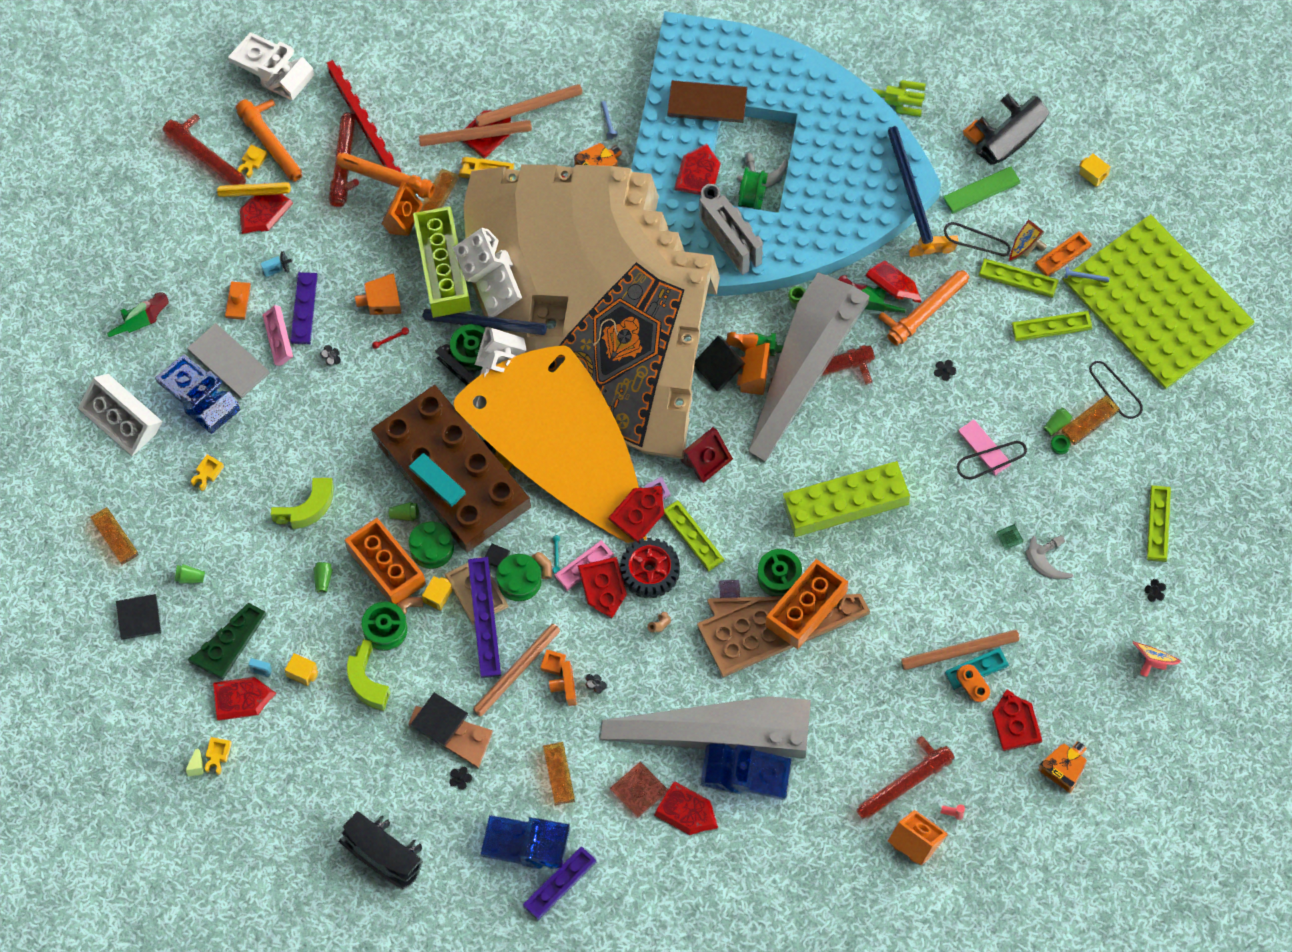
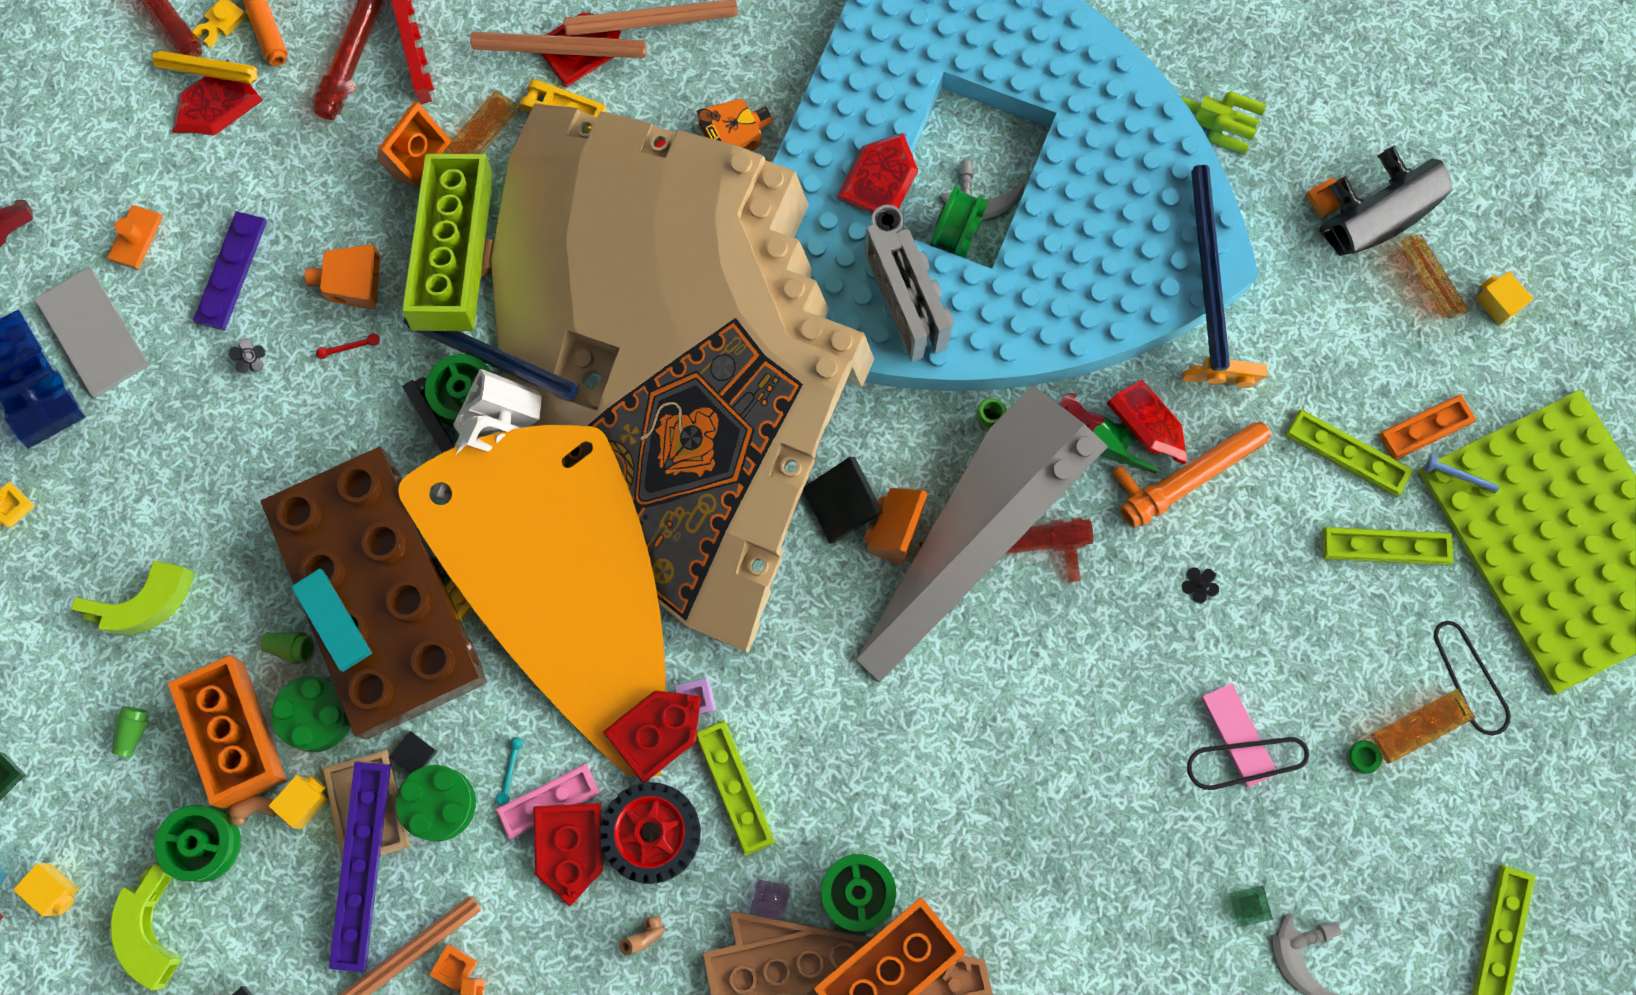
camera: 10 degrees right, 10 degrees up
(271, 266) = (197, 194): medium azure tile -> none
(277, 335) = (175, 307): bright pink plate -> none
(285, 261) = (219, 190): black plant -> none
(423, 188) = (449, 115): orange cylinder -> none
(488, 270) = (509, 273): white piece -> none
(545, 563) = (485, 784): medium nougat arm -> none
(611, 133) = (765, 86): medium blue piece -> none
(707, 101) = (920, 65): reddish brown tile -> none
(707, 455) = (787, 655): dark red bracket -> none
(750, 340) = (908, 475): animal -> none
(846, 499) = (996, 781): lime brick -> none
(975, 247) = (1302, 365): black piece -> none
(981, 189) = (1317, 293): bright green tile -> none
(1027, 240) = (1375, 393): shield -> none
(1050, 165) = (1433, 276): none -> clear orange plate
(1057, 421) = (1369, 716): bright green cone -> none

